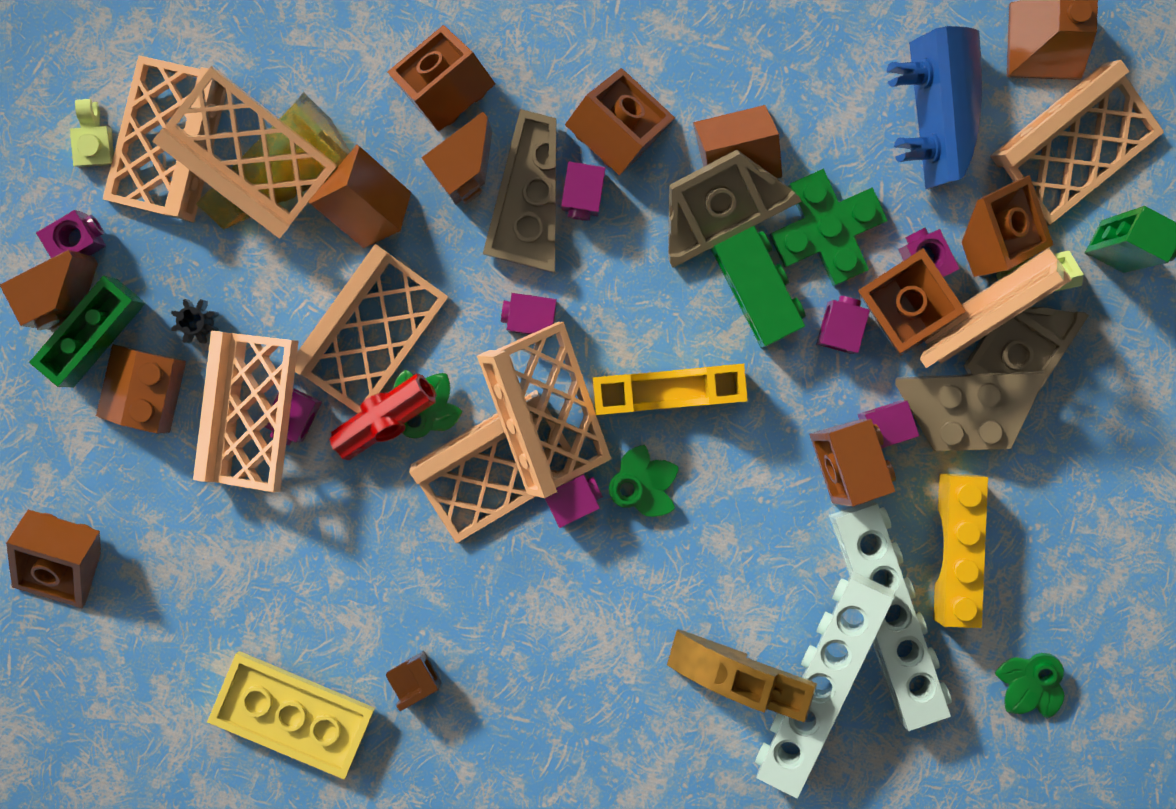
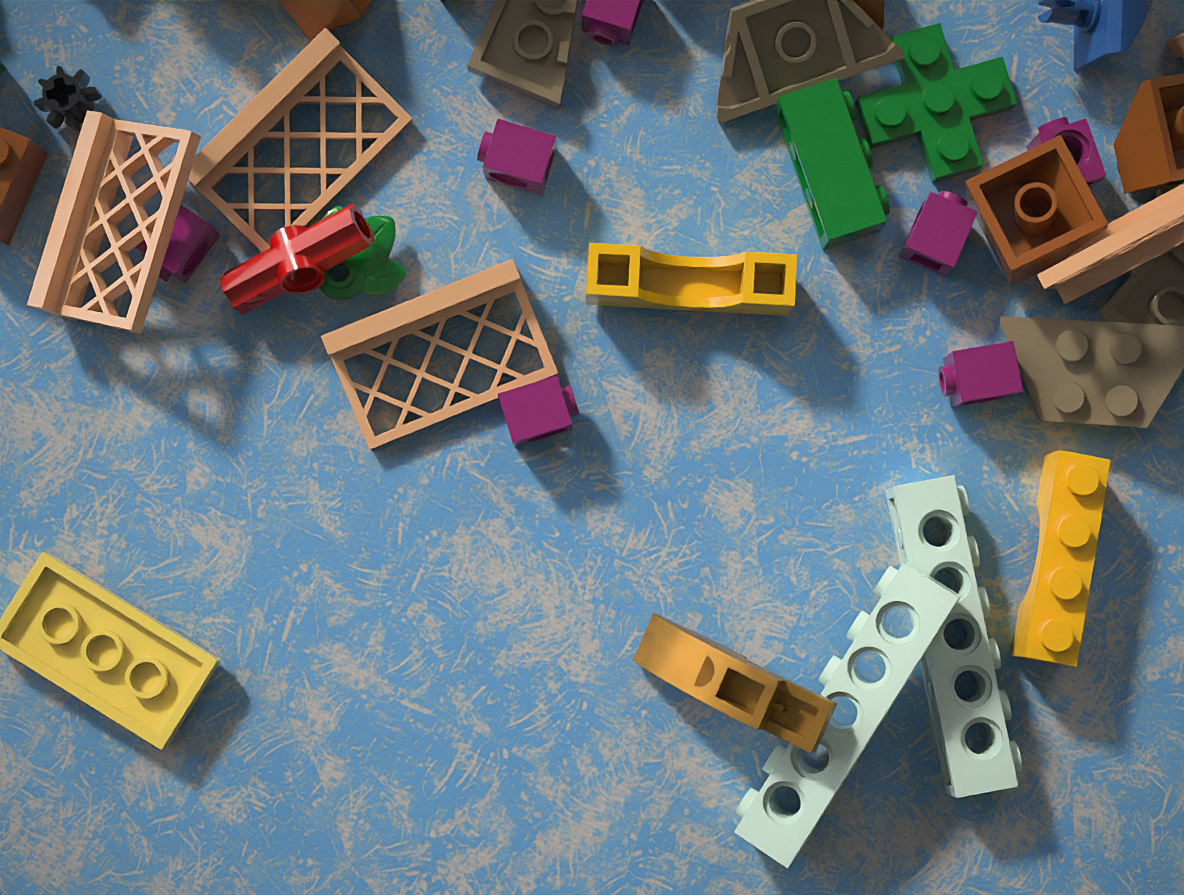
camera: 10 degrees right, 5 degrees down
(413, 680) = (280, 627): reddish brown panel -> none
(517, 418) = (478, 278): light nougat fence -> none
(649, 483) = (645, 404): green plate -> none
(853, 462) = (928, 411): dark orange slope -> none
(1030, 690) = (1134, 773): green plate -> none

